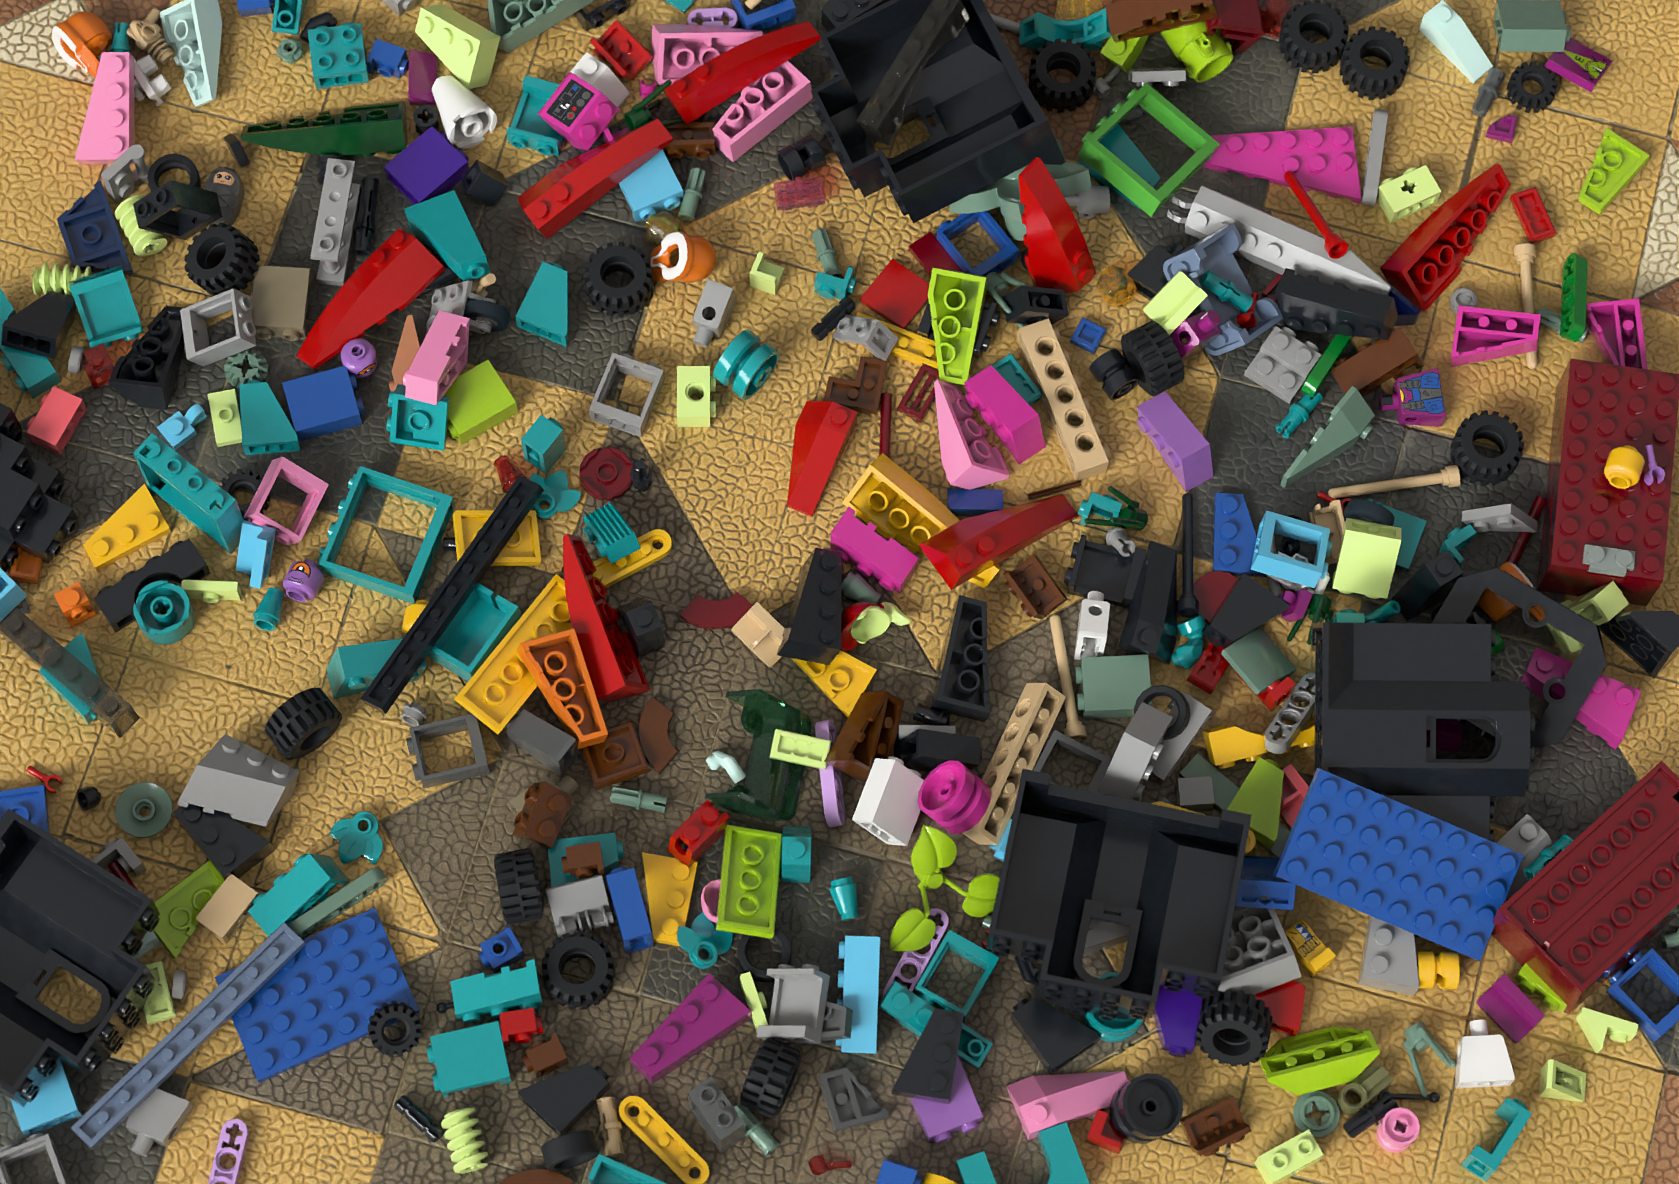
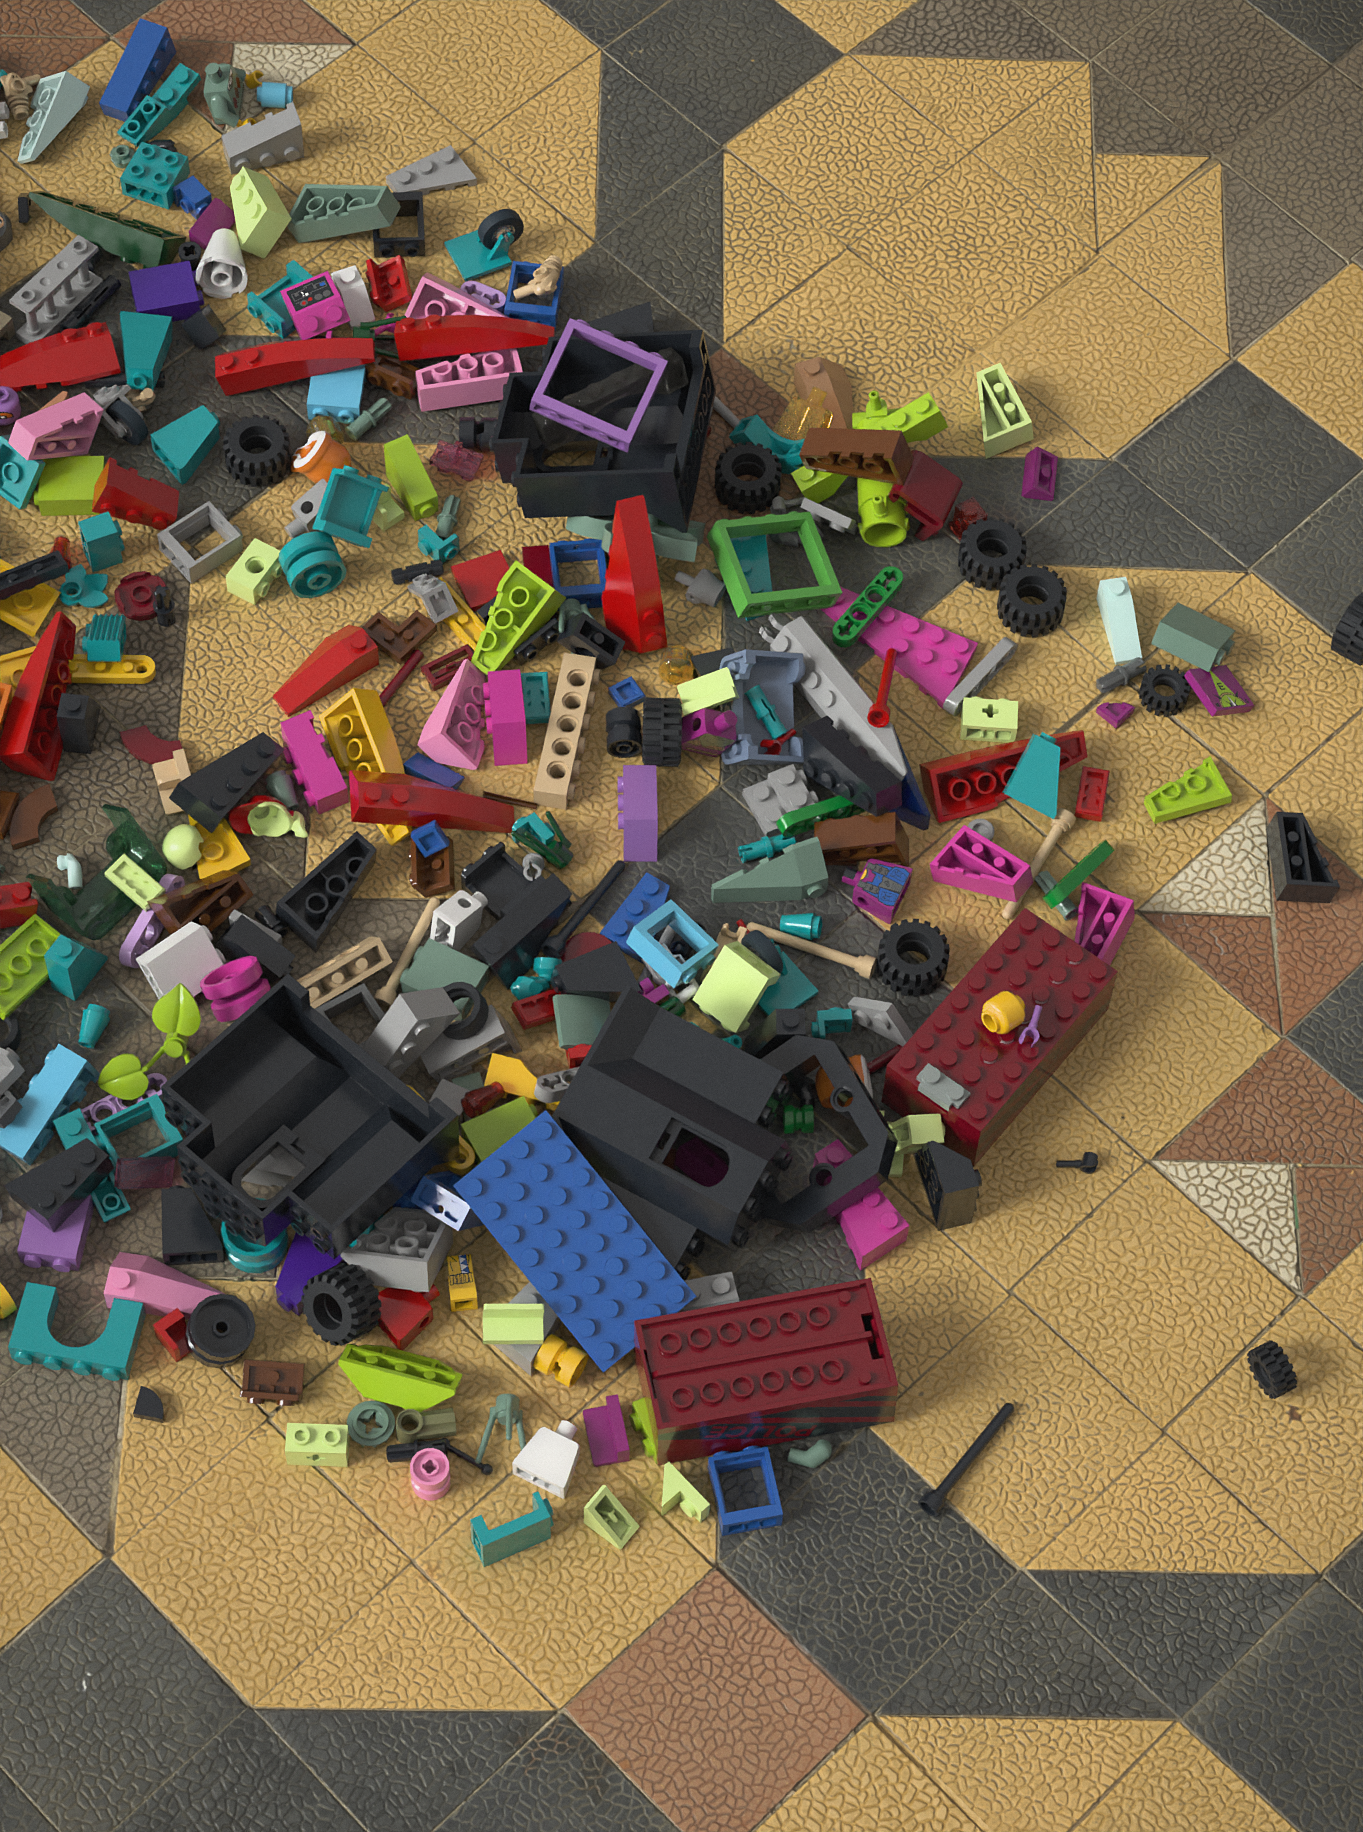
camera: 30 degrees right, 10 degrees down
(546, 387) = (134, 497): none -> red wedge
(747, 293) = (349, 506): none -> teal panel
(773, 235) = (410, 478): none -> lime slope
(811, 690) = (182, 846): none -> yellowish green hair
(907, 107) = (580, 420): none -> medium lavender window
(986, 1006) = (144, 1172): none -> clear pink tile
(1022, 566) = (430, 838): none -> blue tile
(1225, 782) = (481, 1099): none -> clear red cone
(1243, 144) = (870, 608): none -> green beam
(1375, 469) = (802, 925): none -> teal cone
(1389, 966) = (513, 1323): none -> yellowish green panel
(1487, 226) = (1037, 775): none -> teal slope

